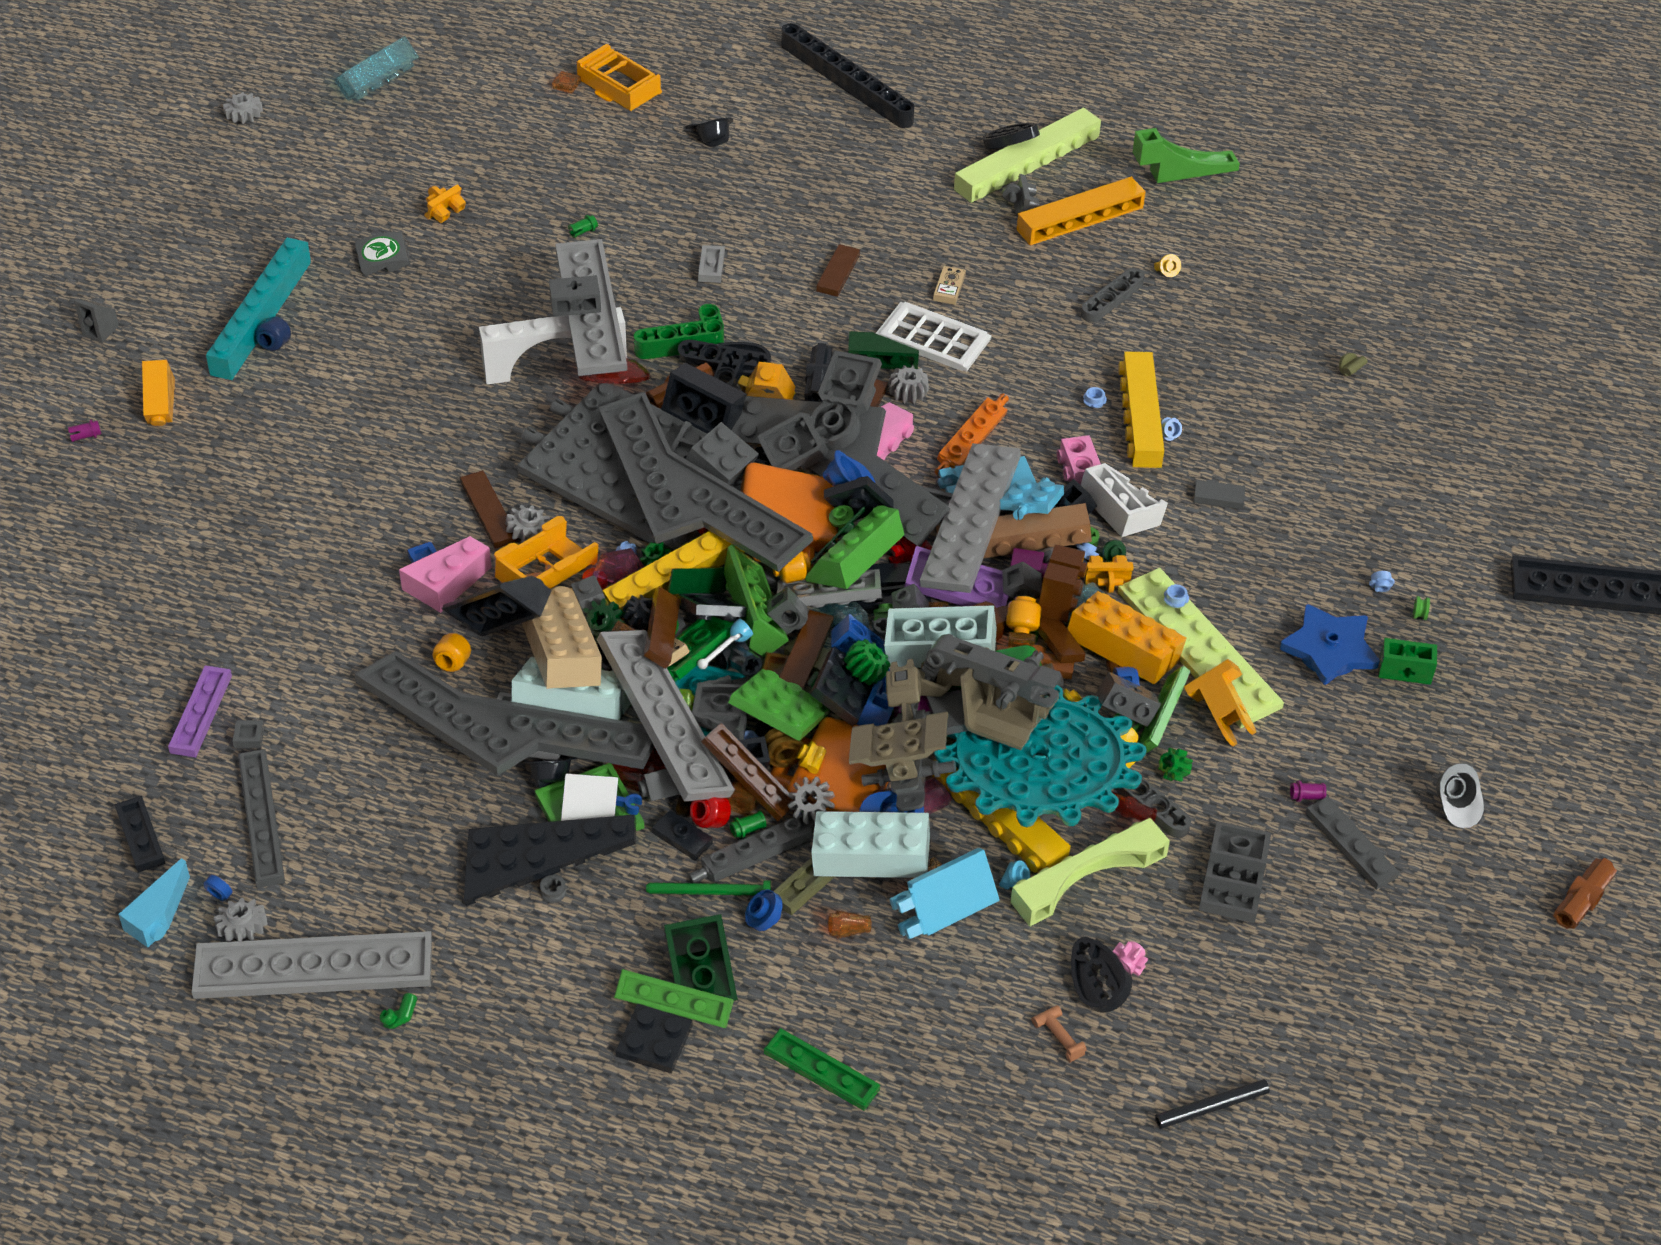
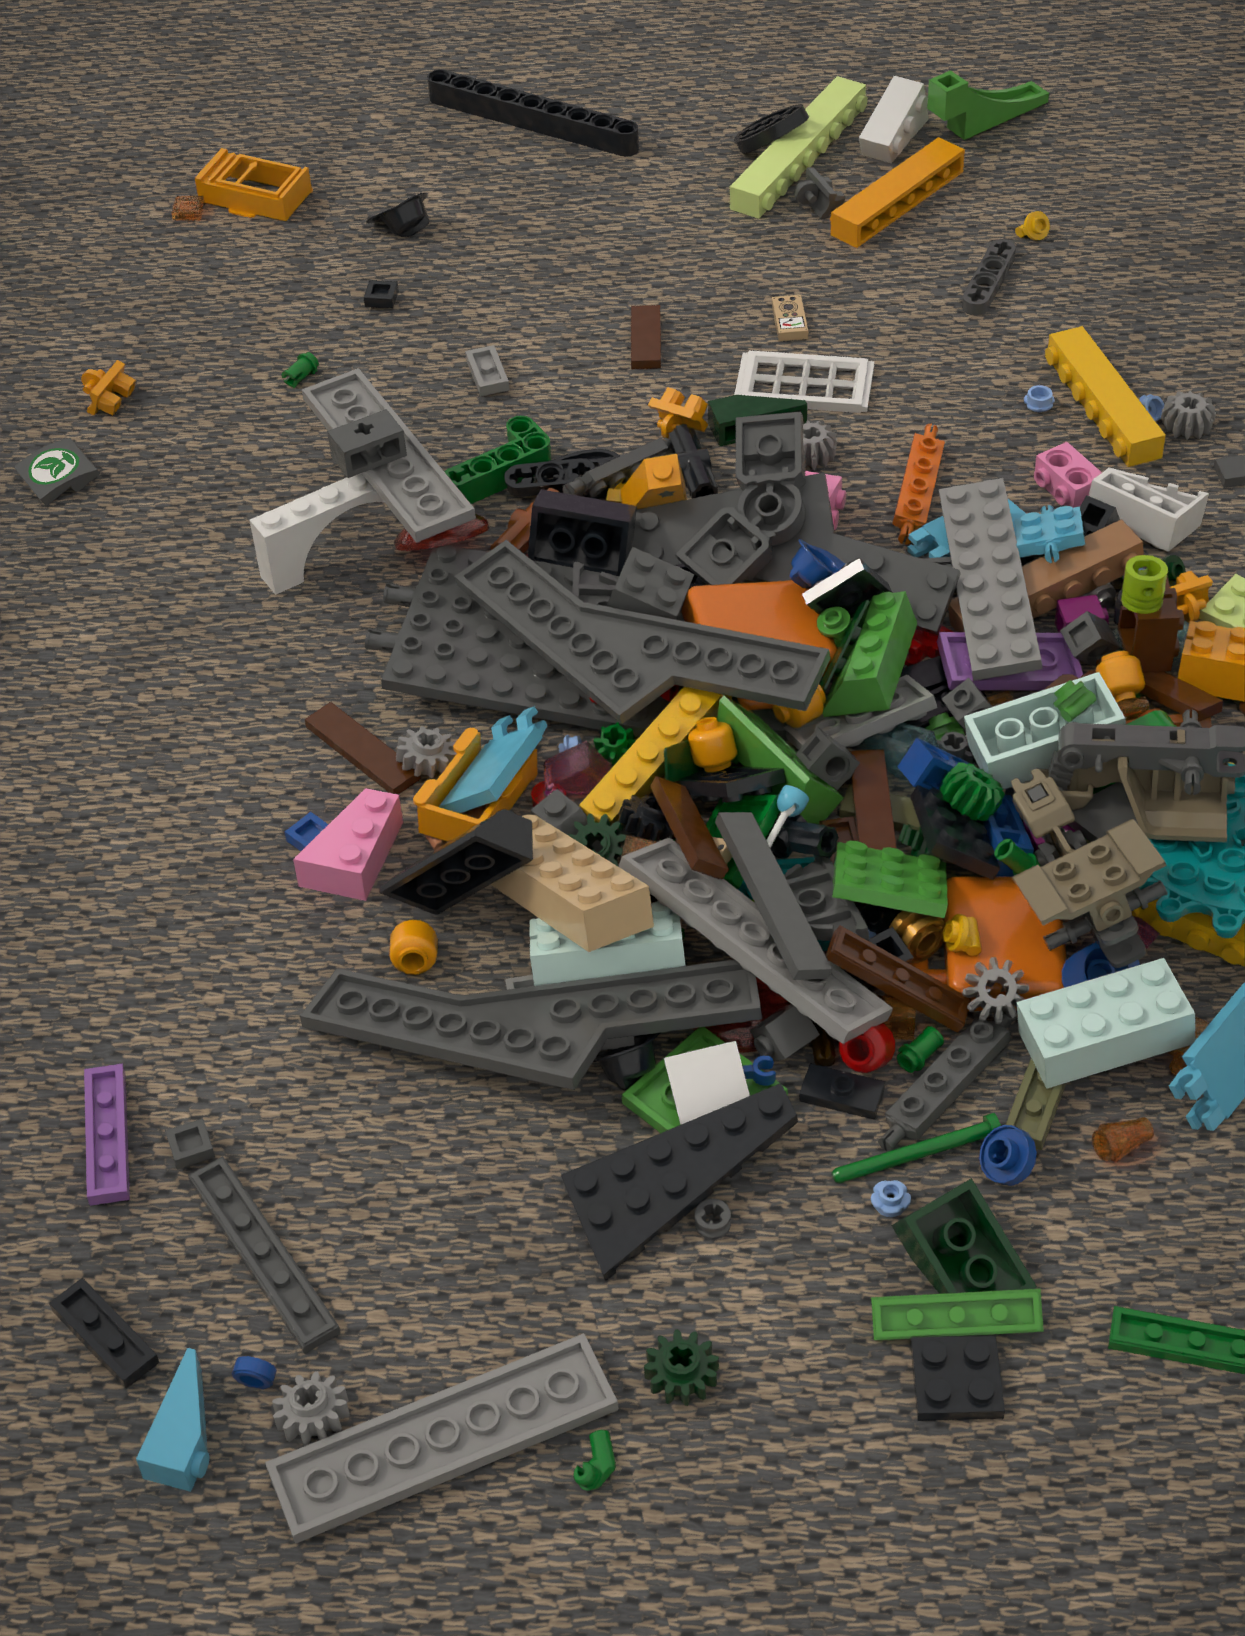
camera: 15 degrees left, 0 degrees up
(481, 972) = (681, 1367): none -> dark green gear
(565, 545) = (496, 763): none -> medium azure tile
(667, 185) = (381, 294): none -> black plate
(679, 916) = (890, 1206): none -> light blue plate
(690, 690) = (773, 896): none -> dark grey tile
(713, 576) = (712, 744): none -> light orange head
(735, 366) = (616, 470): none -> dark grey plate
(823, 335) = (674, 414): none -> light orange hips
(872, 715) = (1015, 857): none -> green pin
(961, 618) = (1073, 699): none -> bright green plate
(1056, 556) = (1145, 588): none -> lime piece
(1106, 155) = (895, 120): none -> white wedge
(1195, 441) = (1188, 415): none -> light grey gear

